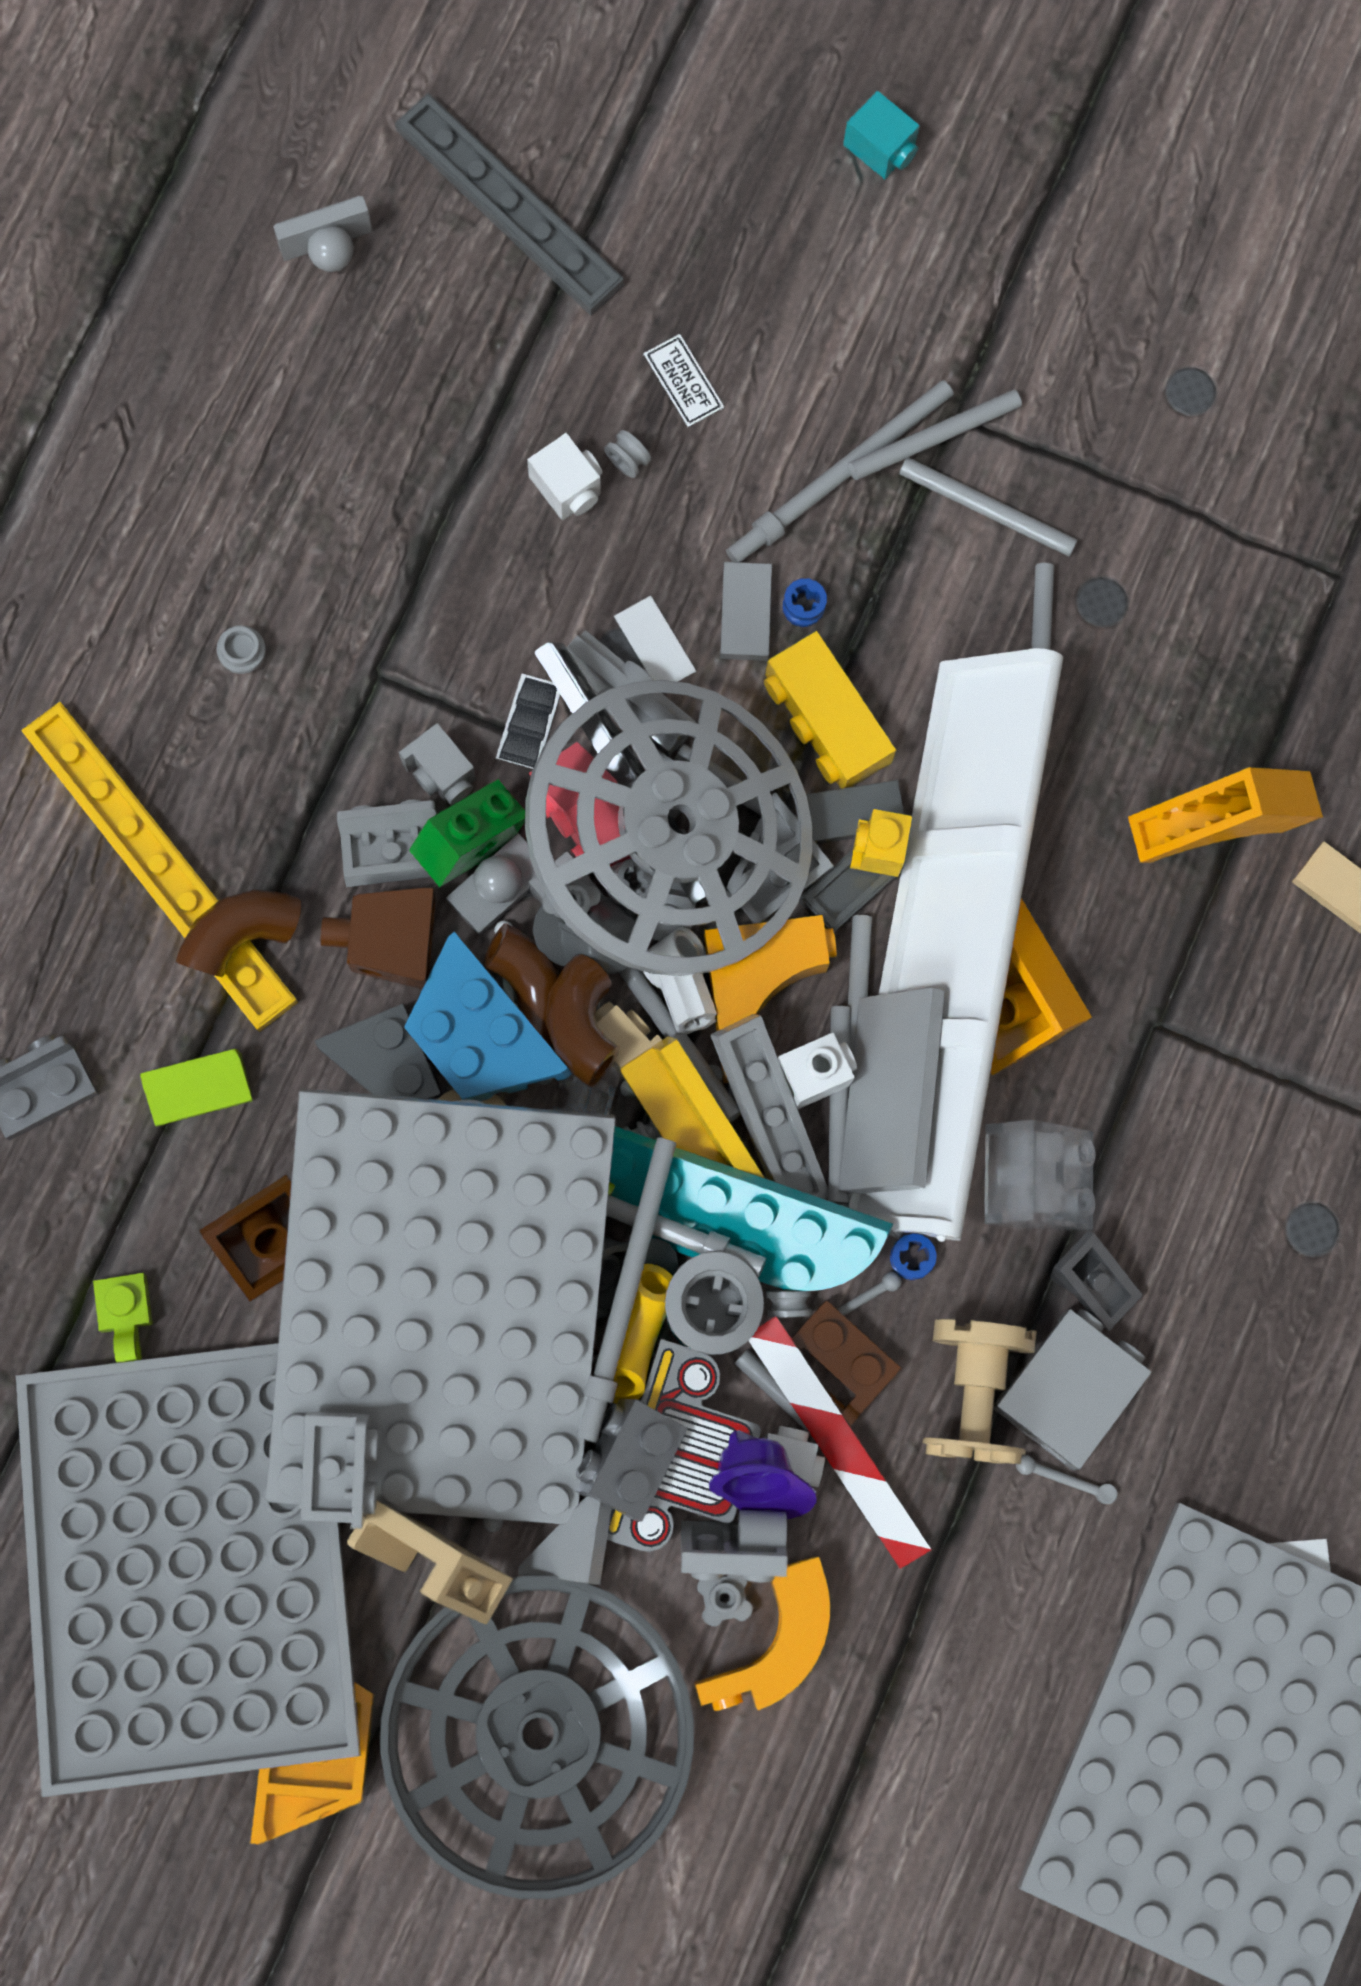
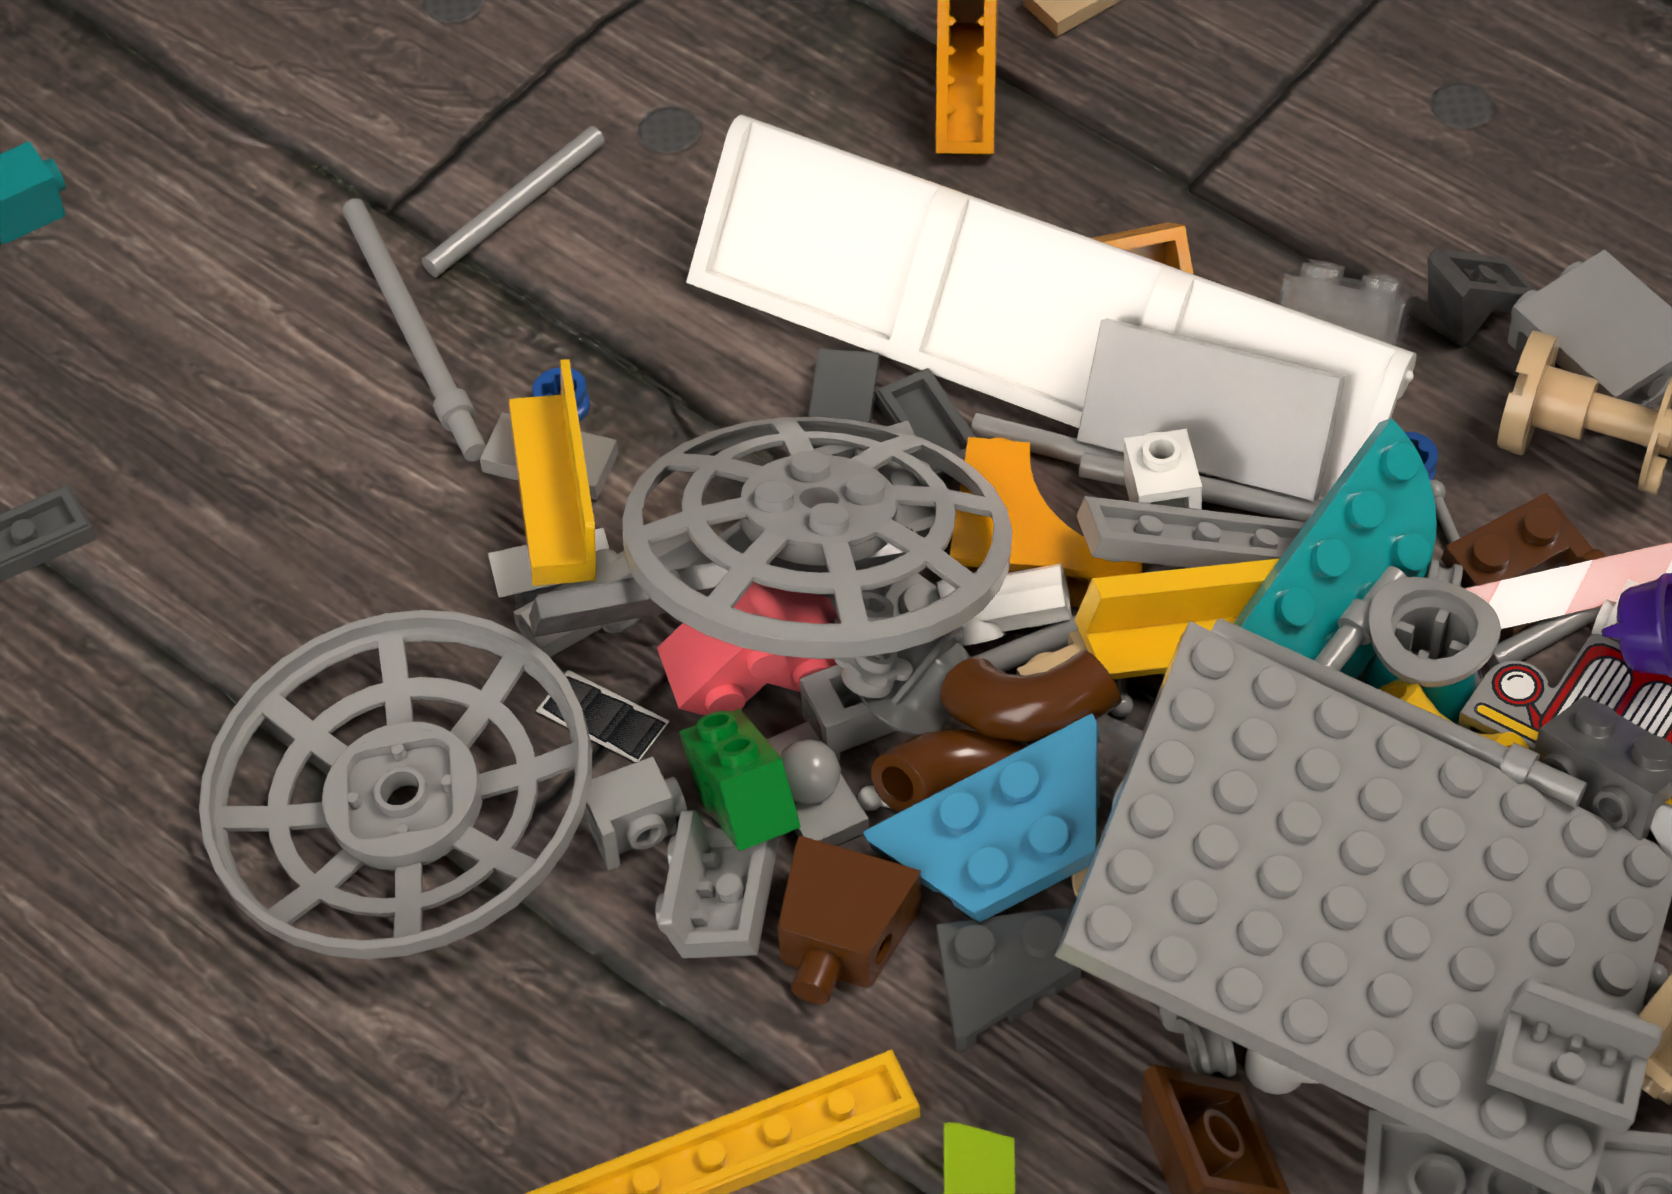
camera: 65 degrees left, 25 degrees down
(234, 922) = (772, 1088): reddish brown cylinder -> none
(241, 649) = (380, 1015): light grey plate -> none
(404, 575) = (384, 760): none -> light grey dish
(566, 477) = (303, 593): white brick -> none
(627, 453) = (299, 525): light grey bush -> none
(683, 380) = (224, 461): white sticker -> none
(695, 622) = (554, 486): none -> yellow panel
(828, 712) = (710, 388): yellow brick -> none
(881, 843) = (898, 361): yellow brick -> none
(934, 434) = (408, 226): light grey bar -> none
(1042, 606) = (658, 177): light grey bar -> none

